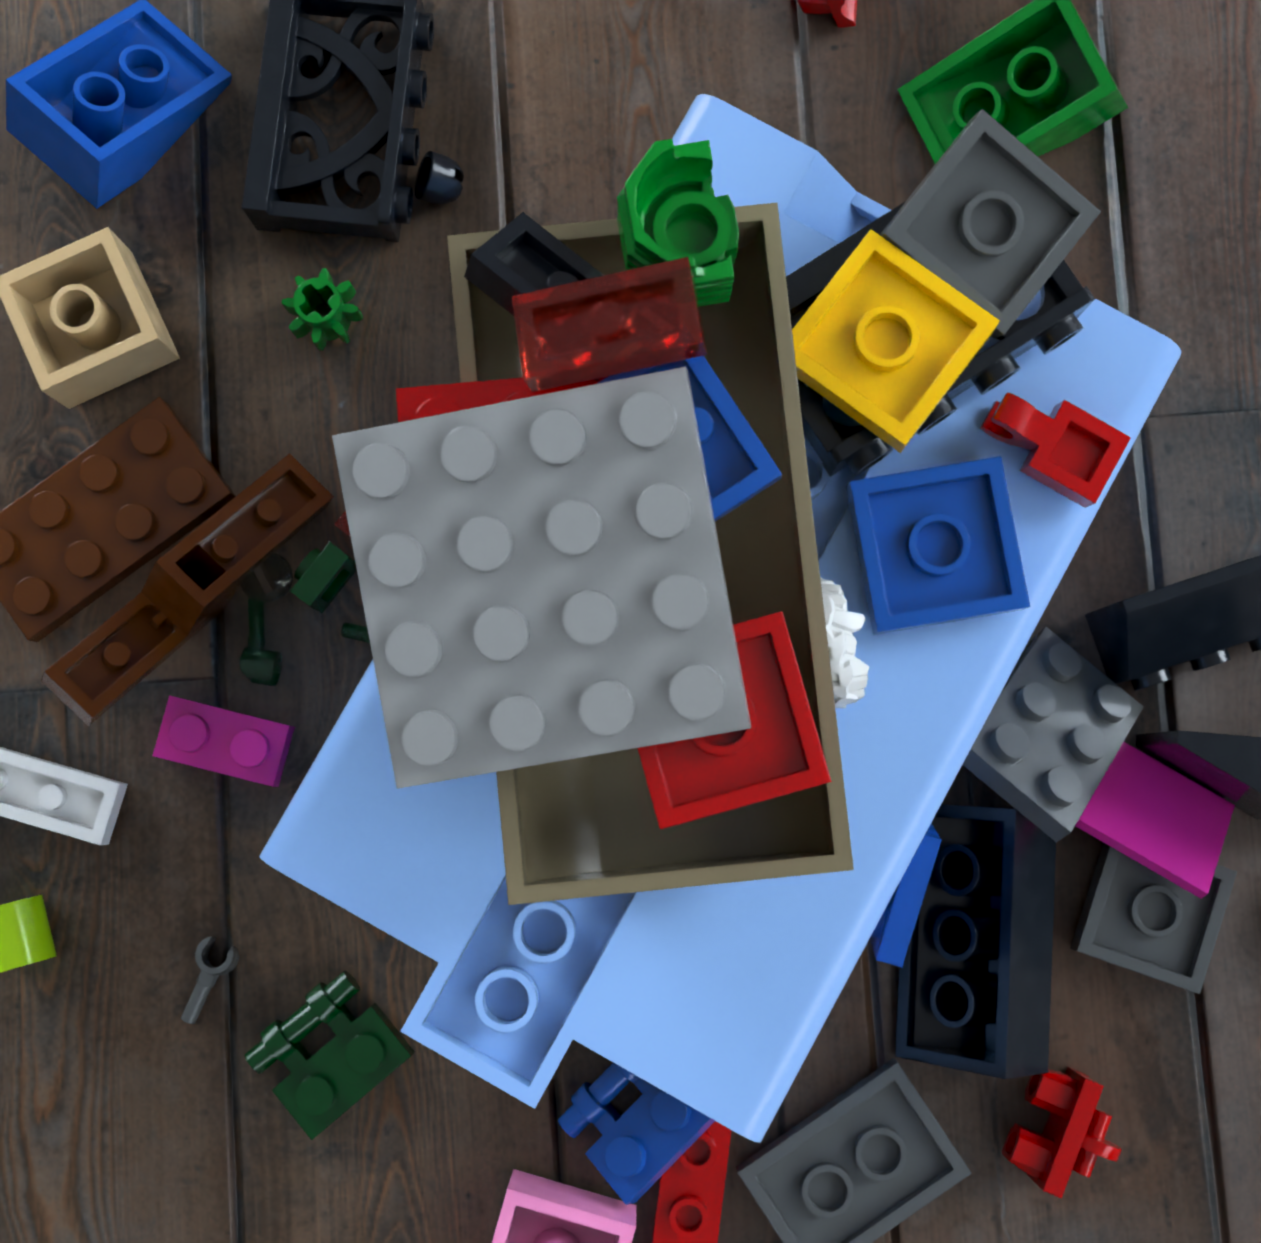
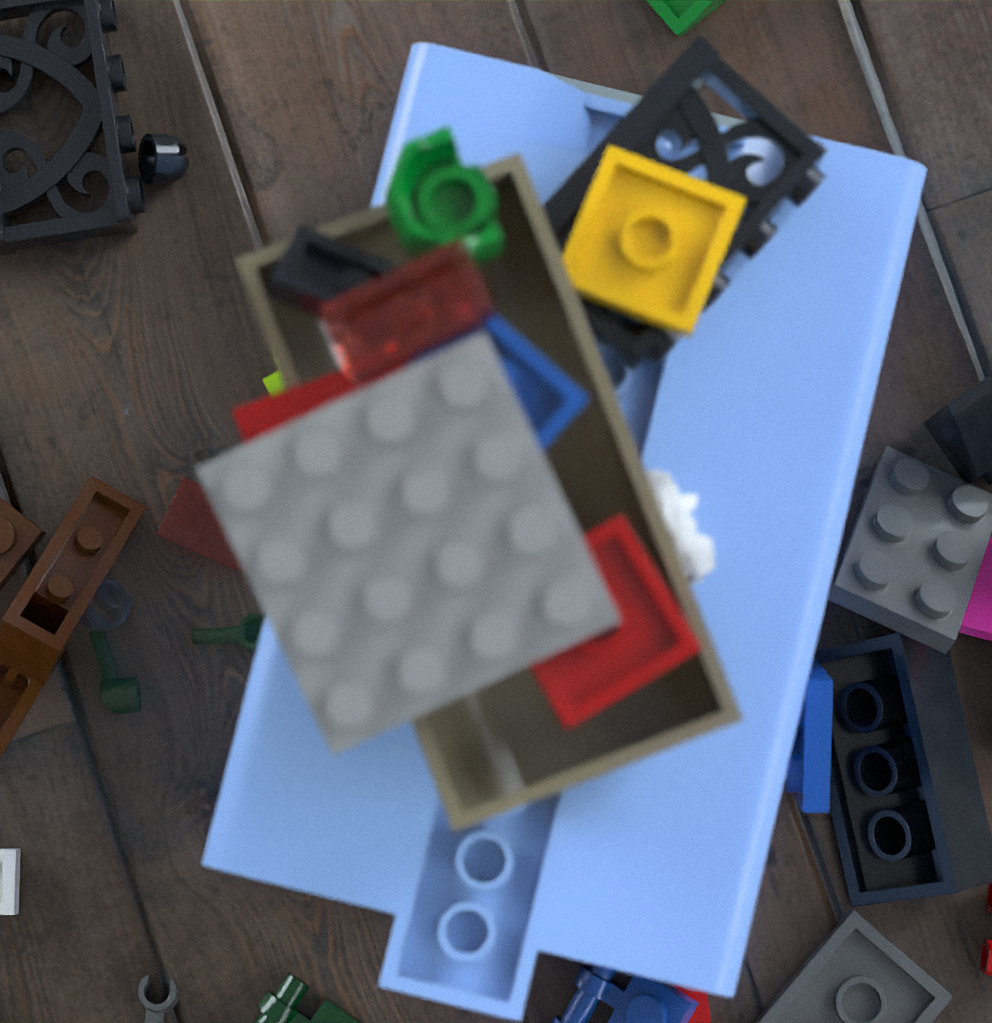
camera: 20 degrees left, 0 degrees up
(223, 741) = (104, 780): dark pink plate -> none
(318, 291) = (80, 338): green gear -> none
(322, 576) = (159, 588): dark green plate -> none
(937, 545) = (746, 410): blue plate -> none
(991, 220) = (714, 108): dark grey plate -> none
(1067, 449) = (842, 290): red plate -> none

